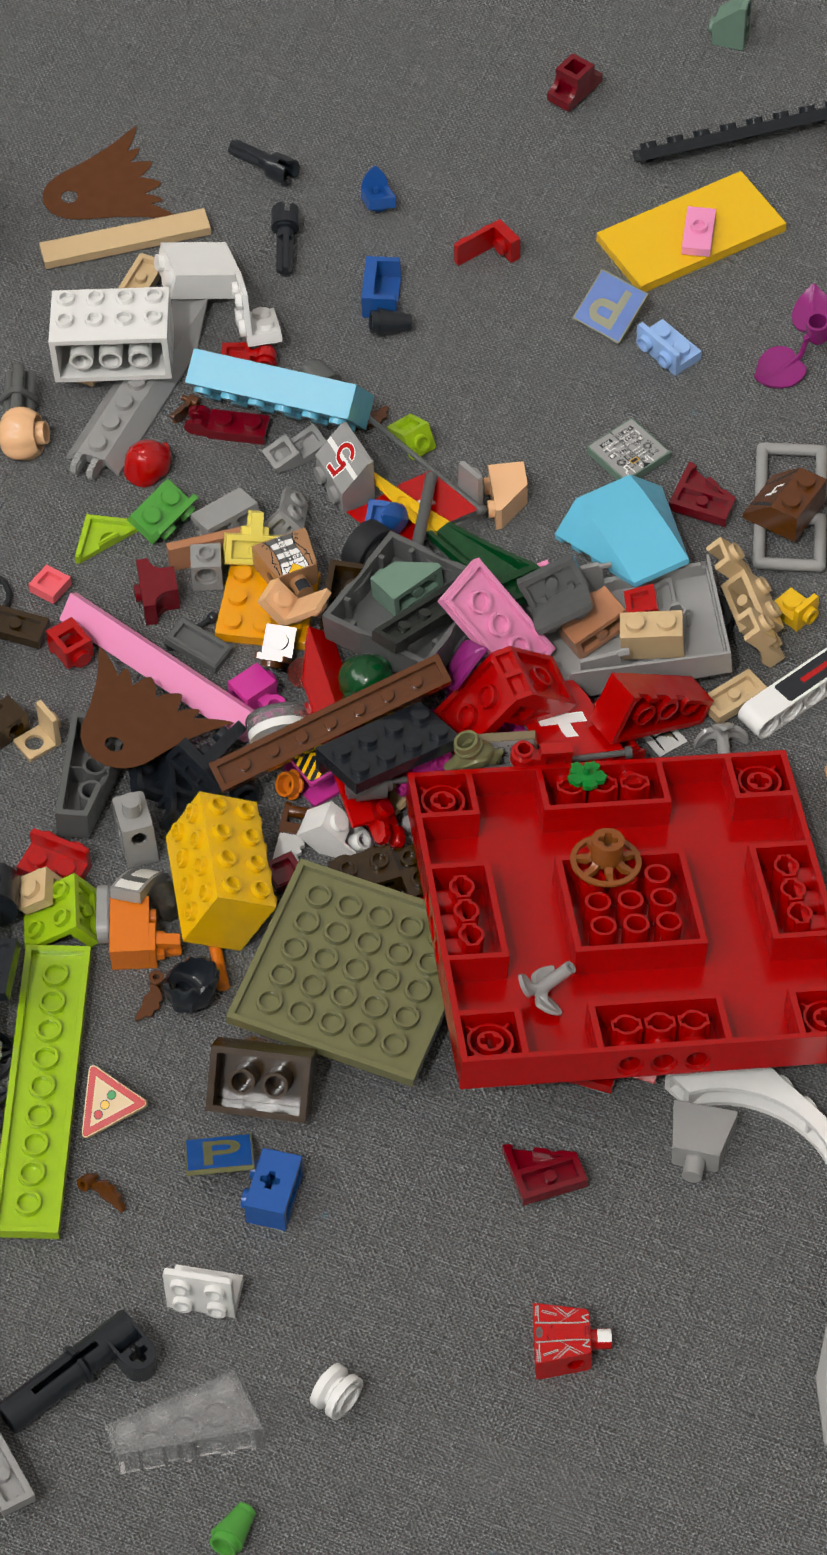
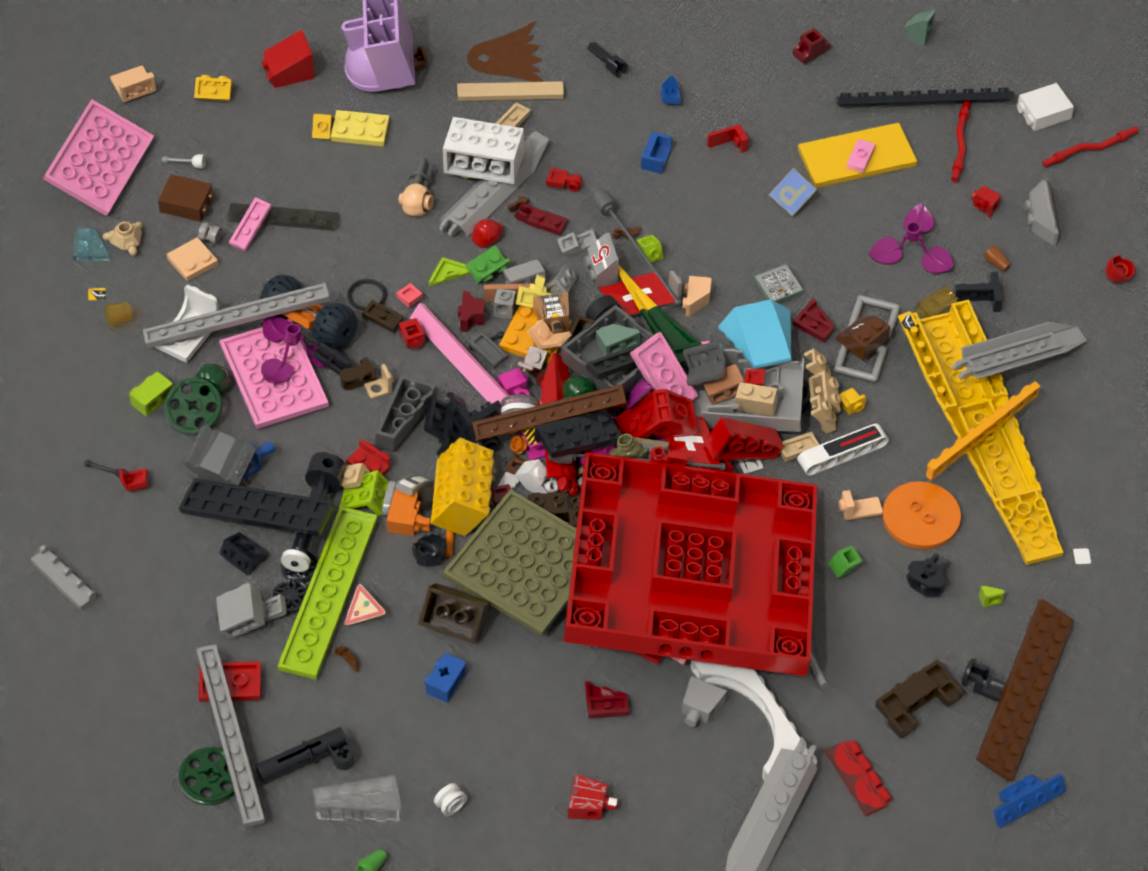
camera: 10 degrees right, 0 degrees up
(131, 818) = (420, 446): light grey torso -> none
(137, 718) = (438, 386): reddish brown piece -> none
(153, 998) = (406, 553): reddish brown piece -> none
(196, 269) = (547, 120): white brick -> none
(202, 1291) = (389, 726): white bracket -> none
(219, 1154) = (419, 651): piece -> none
(257, 326) = (576, 161): white bracket -> none
(279, 390) = (575, 205): medium azure brick -> none
(285, 226) = (608, 102): black piece -> none
(388, 513) = (621, 294): blue plate -> none
(389, 321) = (655, 175): black cone -> none
(424, 508) = (642, 296): dark grey bar -> none
(542, 982) = (628, 591): light grey plant -> none
(586, 776) = (692, 475): green plant -> none
(606, 853) = (687, 524): dark orange wheel -> none
(667, 346) = (821, 224): light blue bracket -> none
(721, 733) = (784, 467): light grey plant -> none

